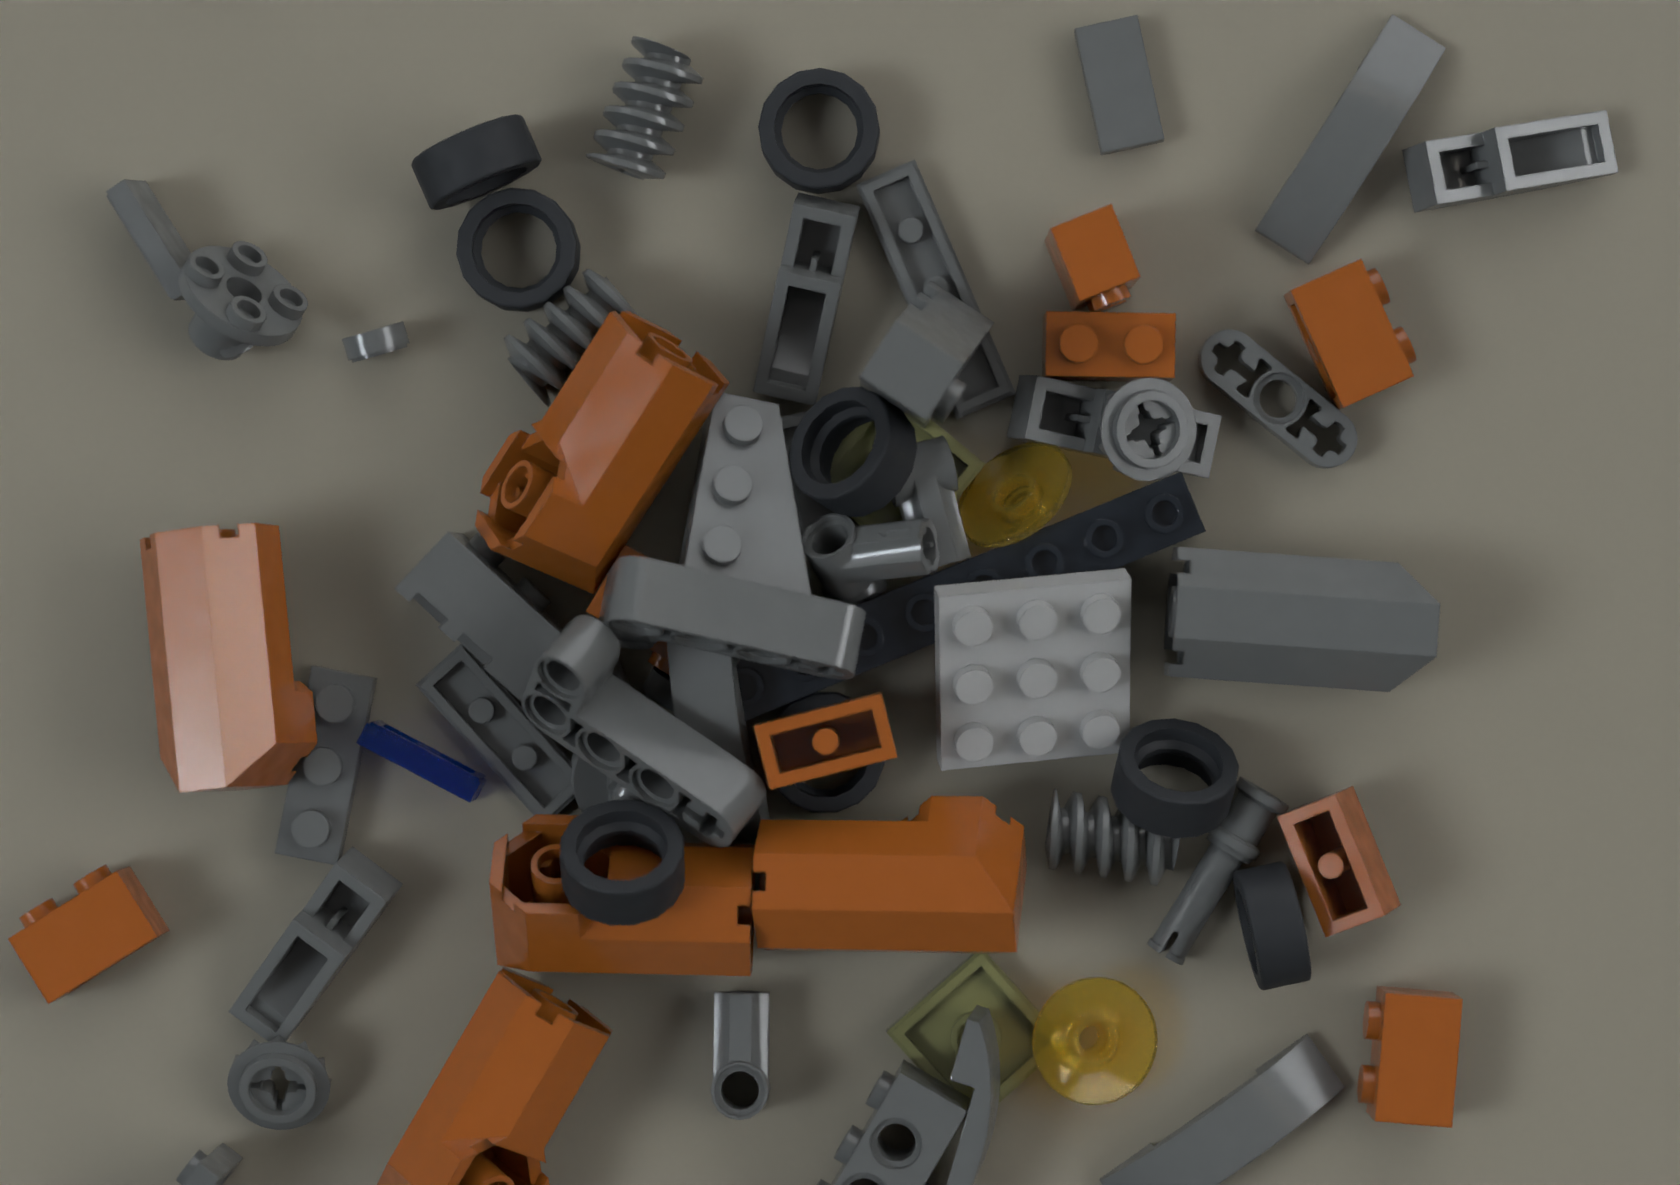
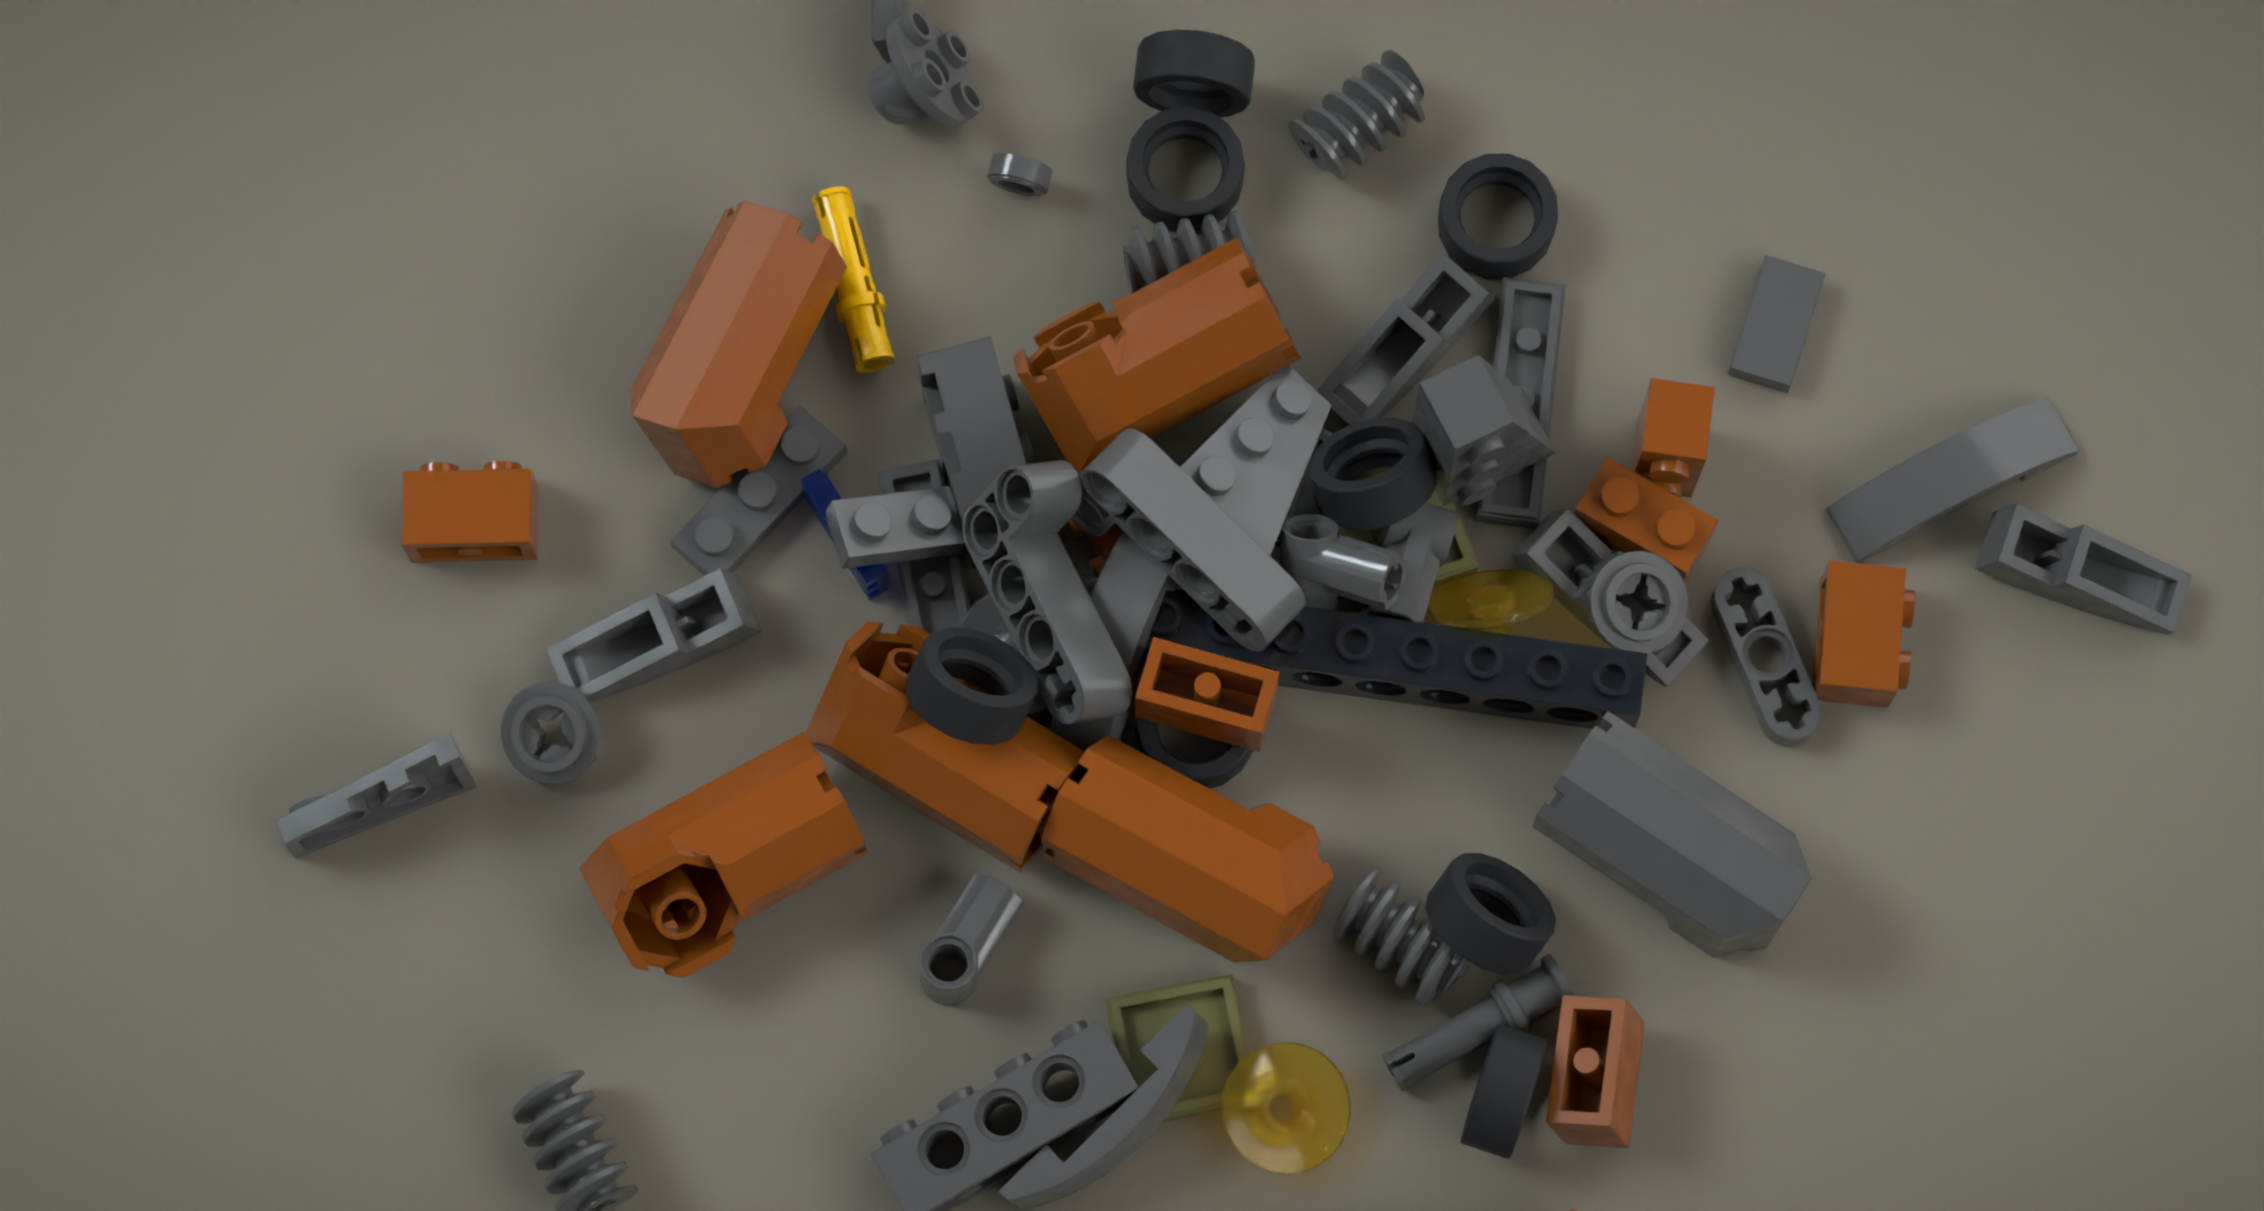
camera: 25 degrees right, 15 degrees down
(299, 534) = (859, 303): none -> yellow pin
(463, 738) = (895, 527): none -> dark grey plate
(1032, 668) = (1420, 747): light grey plate -> none

